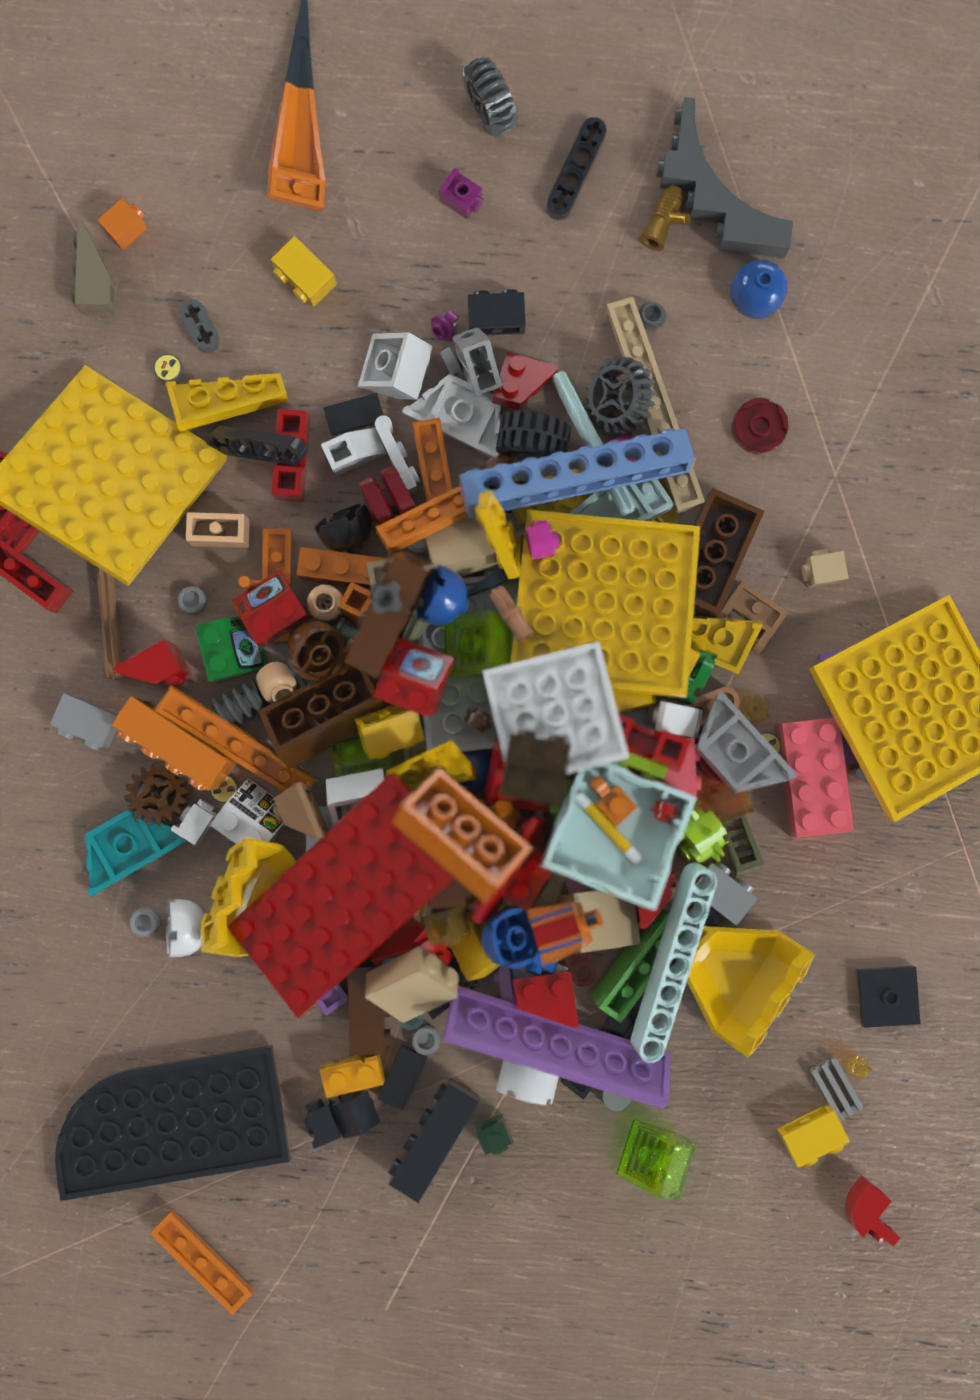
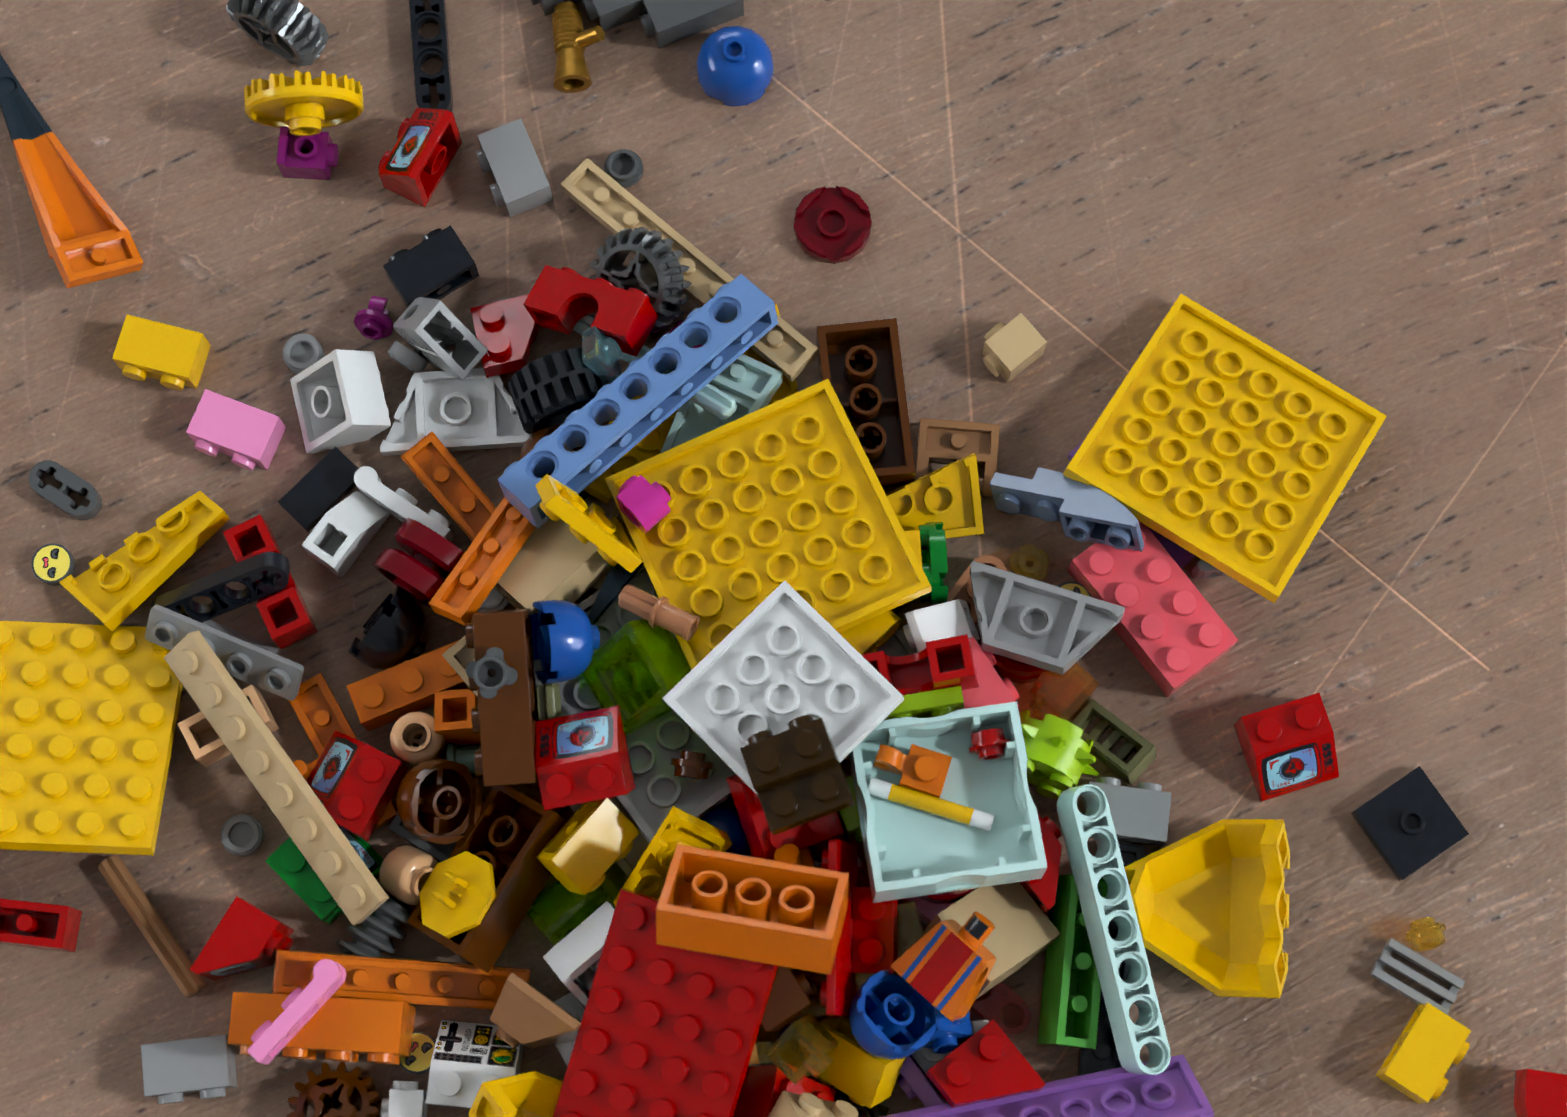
camera: 20 degrees left, 10 degrees down
(161, 730) = (298, 1010): none -> bright pink plate
(226, 579) = (276, 778): none -> tan plate
(241, 483) = (239, 653): none -> light grey bracket
(295, 713) = (457, 894): none -> yellow piece
(321, 347) = (235, 430): none -> bright pink brick
(389, 321) = (302, 352): none -> light grey tile
(476, 160) = (303, 102): none -> yellow wheel
(531, 235) = (421, 154): none -> red slope
(568, 379) = (565, 297): none -> red arch
(569, 430) = (601, 354): none -> clear light blue plate
(584, 277) = (514, 167): none -> light grey brick
(807, 696) = (1081, 508): none -> sand blue slope
(844, 910) = (1288, 746): none -> red slope

